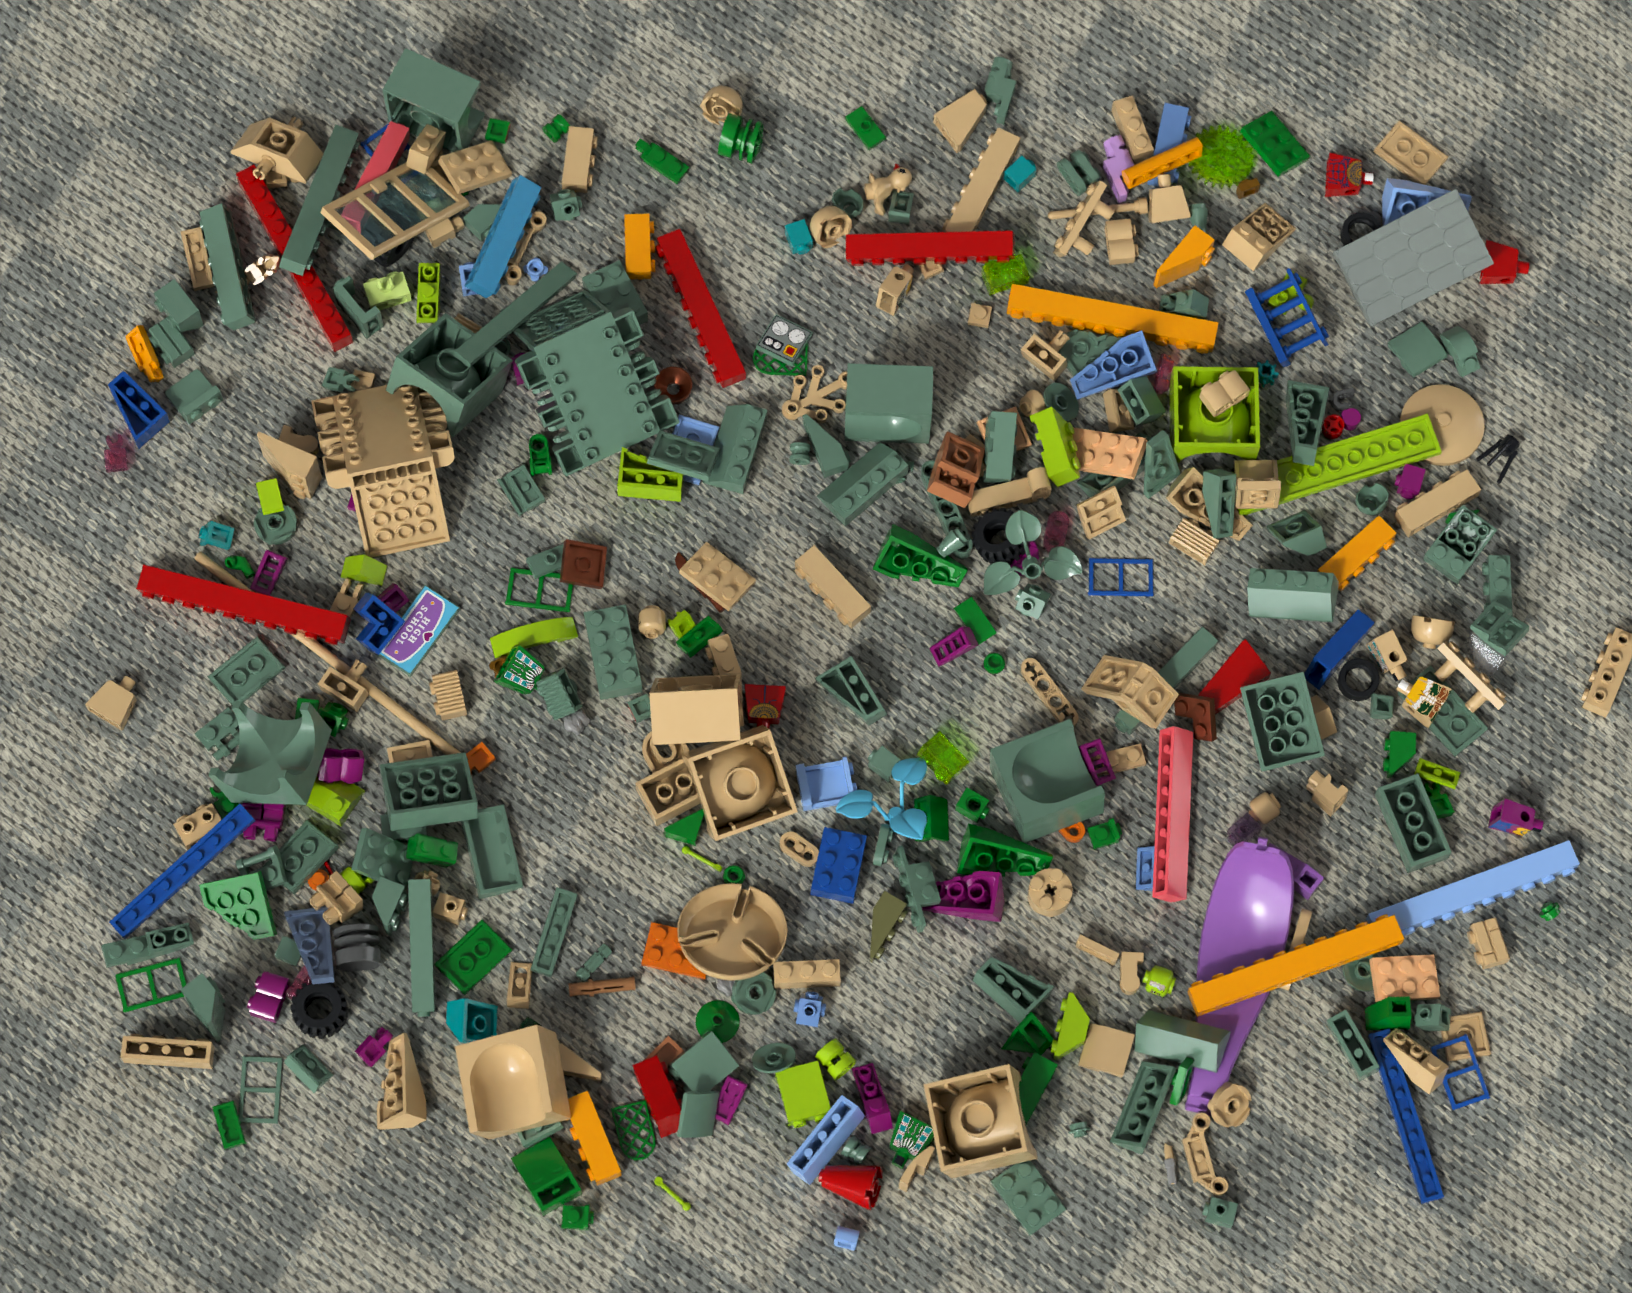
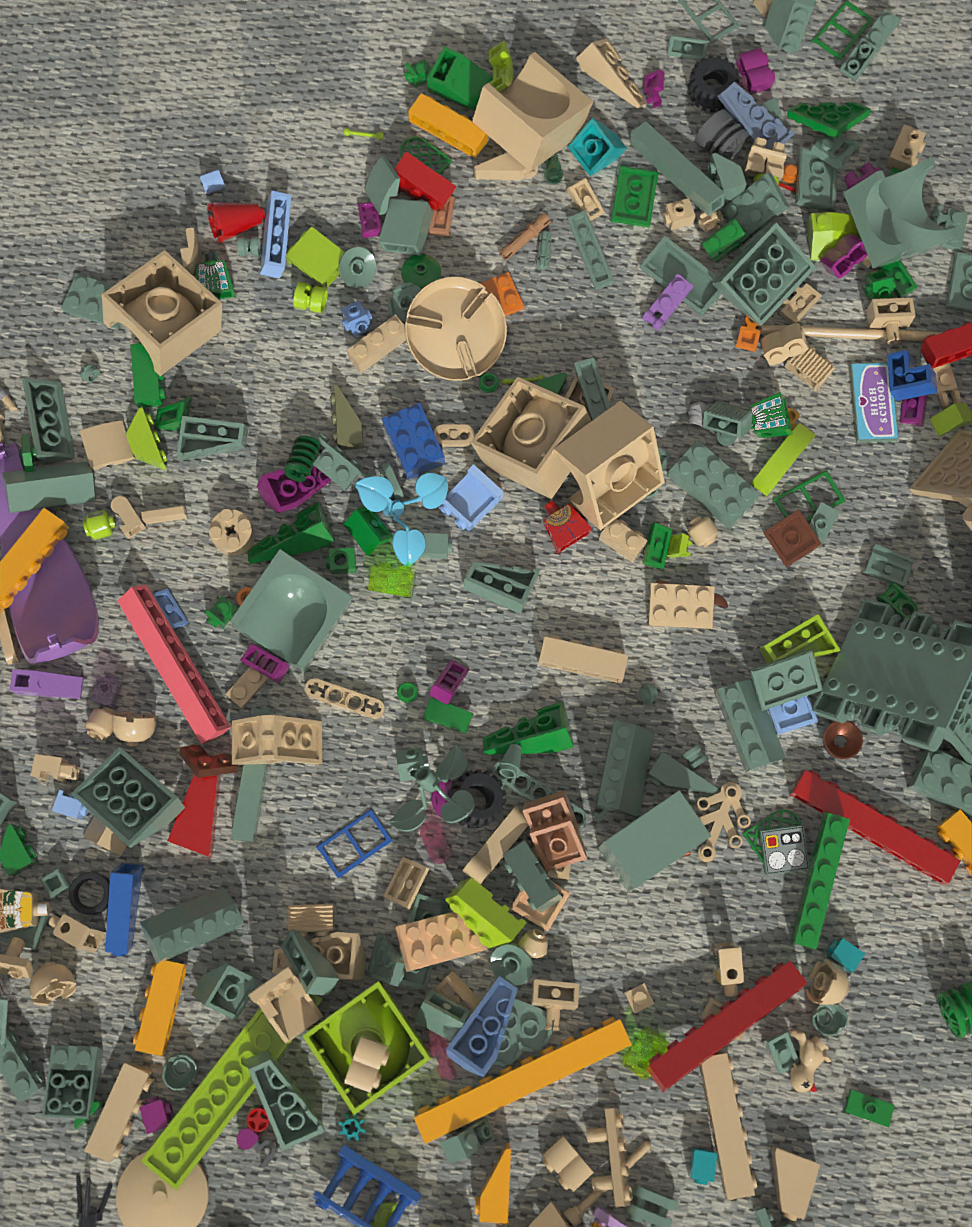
camera: 145 degrees right, 5 degrees up
(182, 871) = (890, 108): blue plate -> none
(458, 724) = (784, 344): none -> tan brick
(503, 1154) = (502, 66): none -> lime slope
(524, 835) = (668, 301): none -> medium lavender plate
(657, 790) = (591, 387): none -> sand green plate
(776, 297) = (820, 880): none -> green brick
(799, 527) = (648, 693): none -> sand green plate
(872, 1098) = (263, 290): magenta slope -> none
(946, 907) = (302, 458): none -> dark green piece
(1239, 784) = (133, 727): none -> tan cylinder
(1334, 758) = (69, 806): none -> light blue brick

